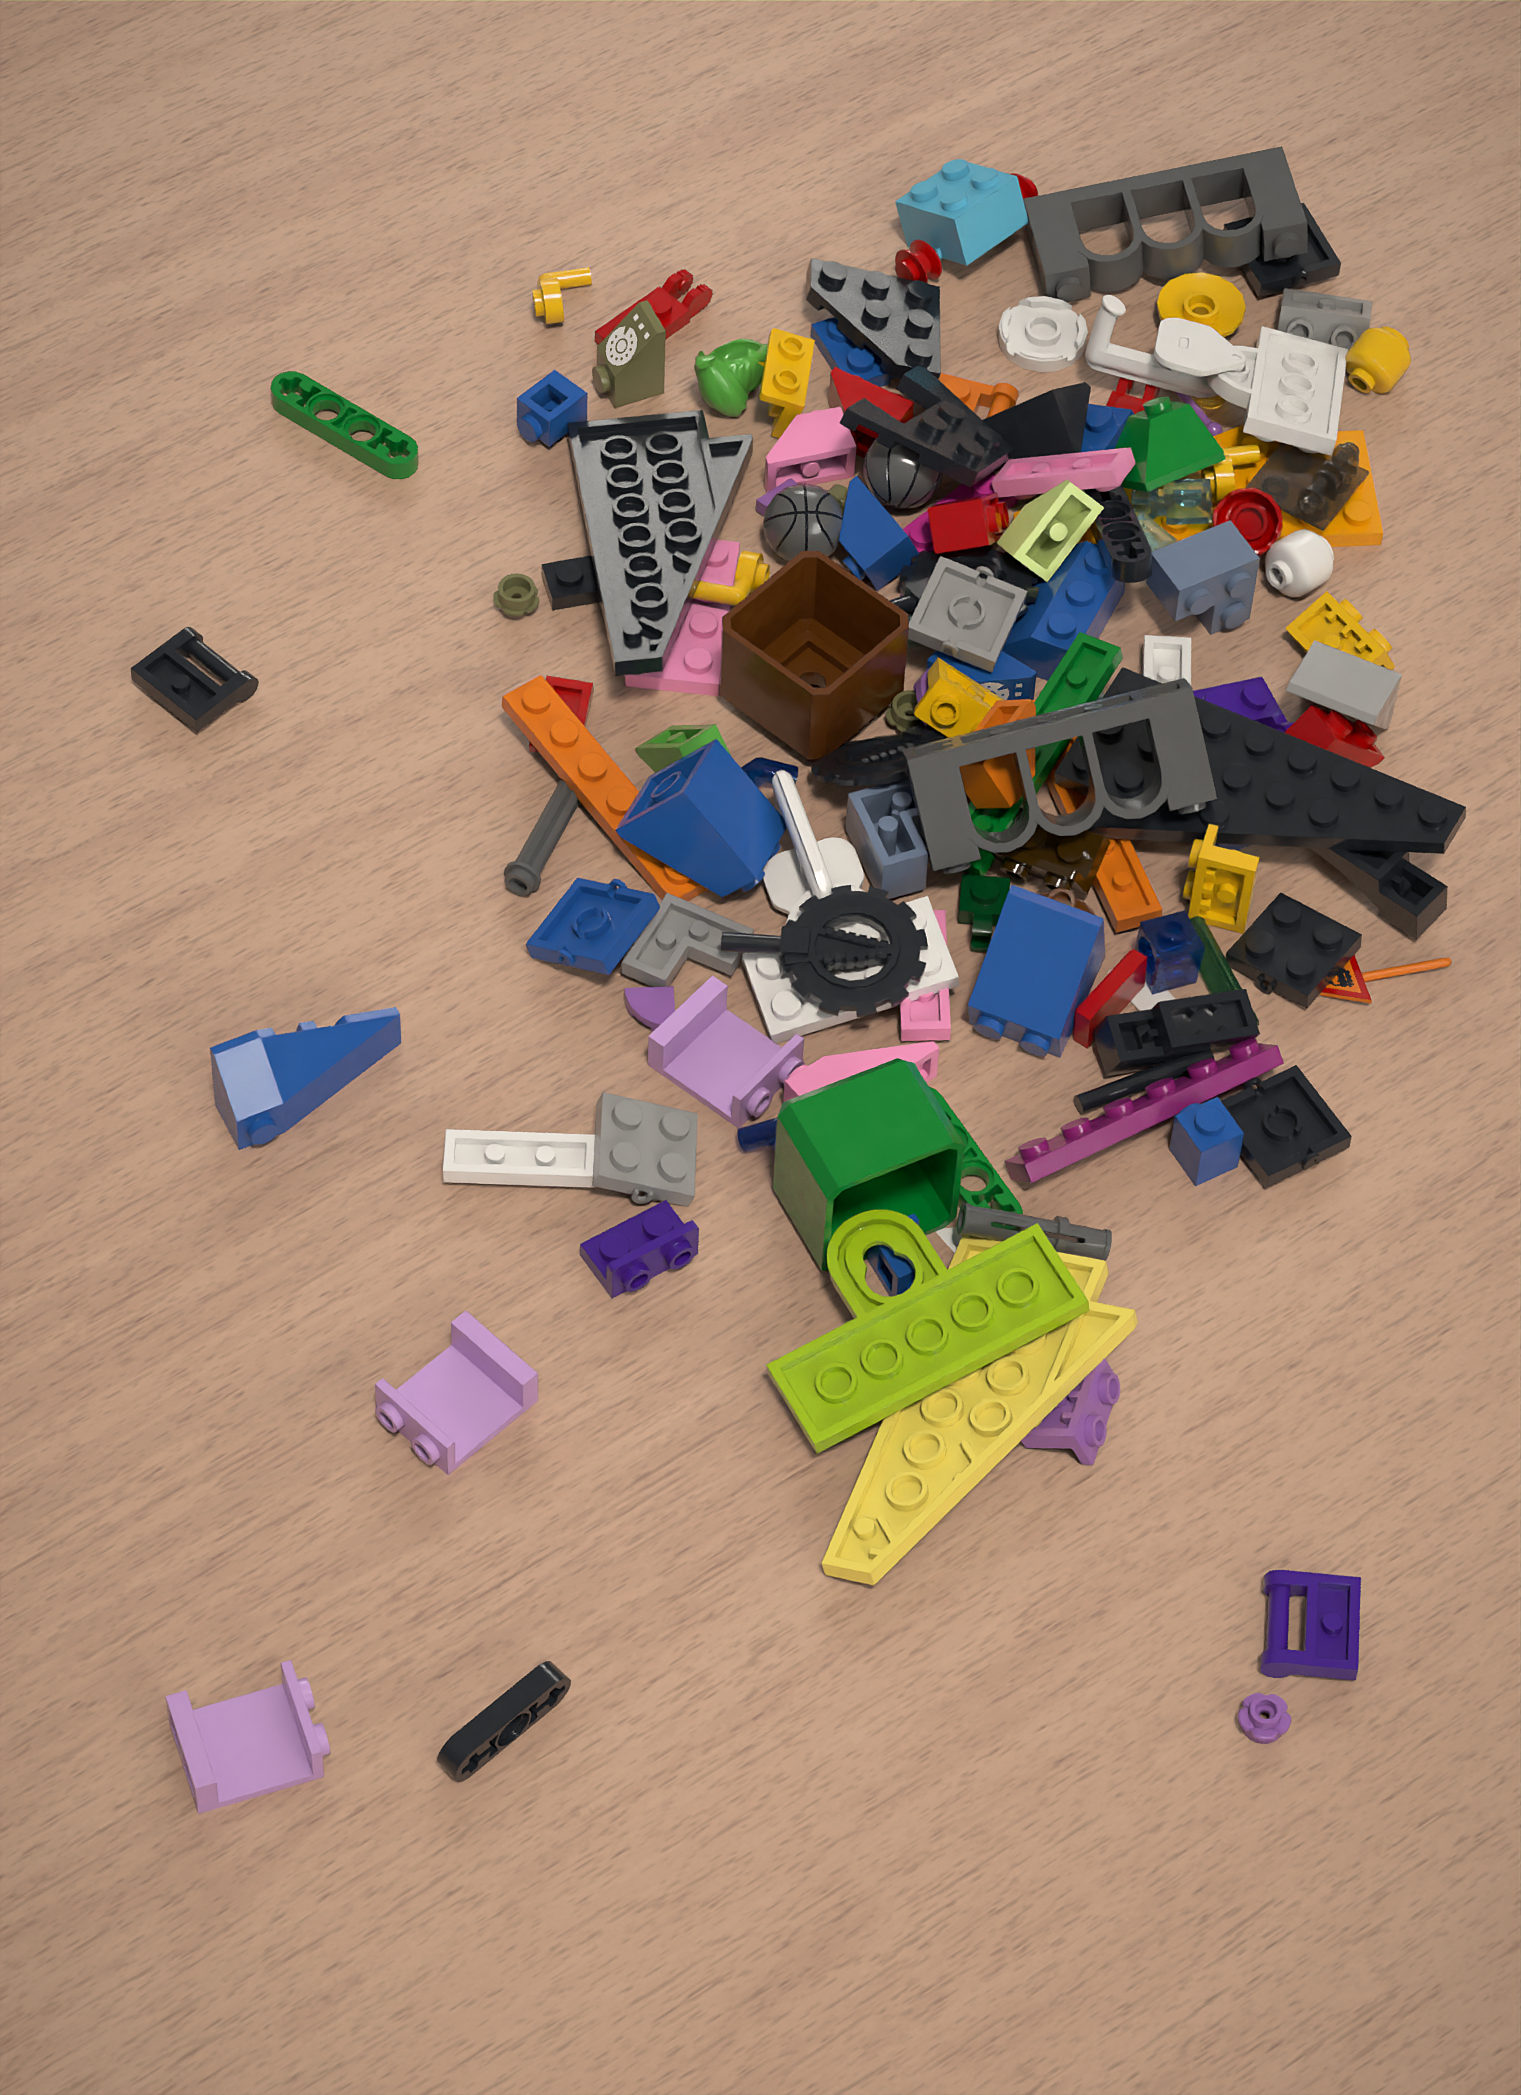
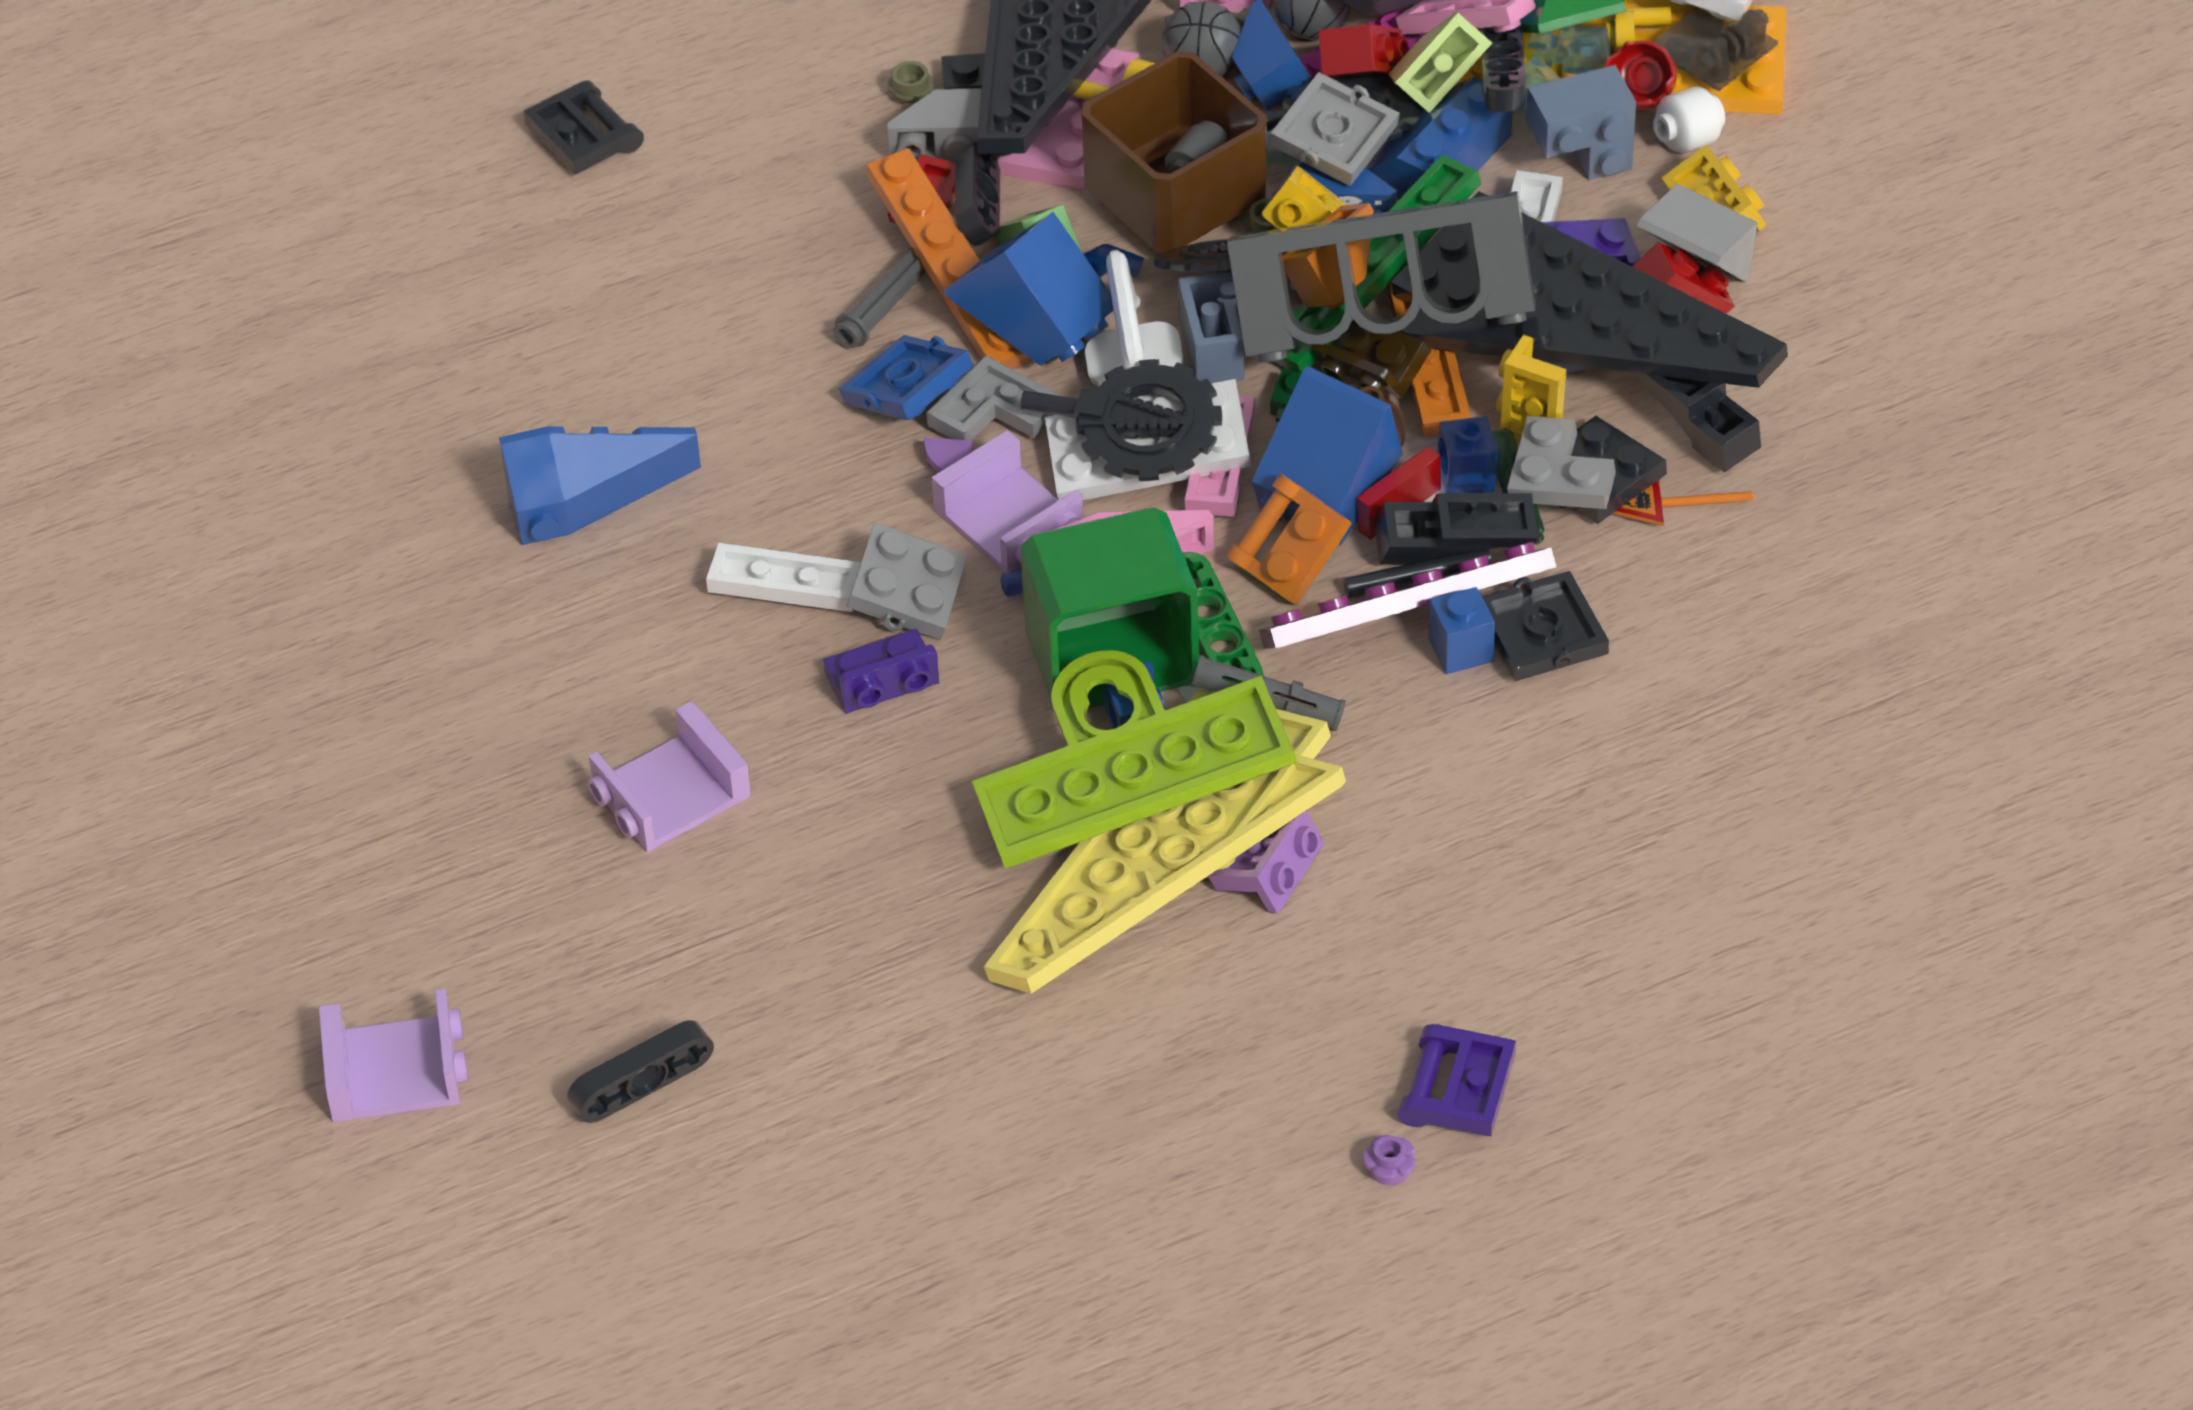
camera: 15 degrees right, 5 degrees down
(561, 644) = (937, 124): none -> light grey slope
(616, 715) = (977, 195): none -> black beam
(832, 651) = (1195, 143): none -> dark grey brick
(1030, 1070) = (1300, 547): none -> orange plate
(1257, 966) = (1552, 474): none -> light grey plate

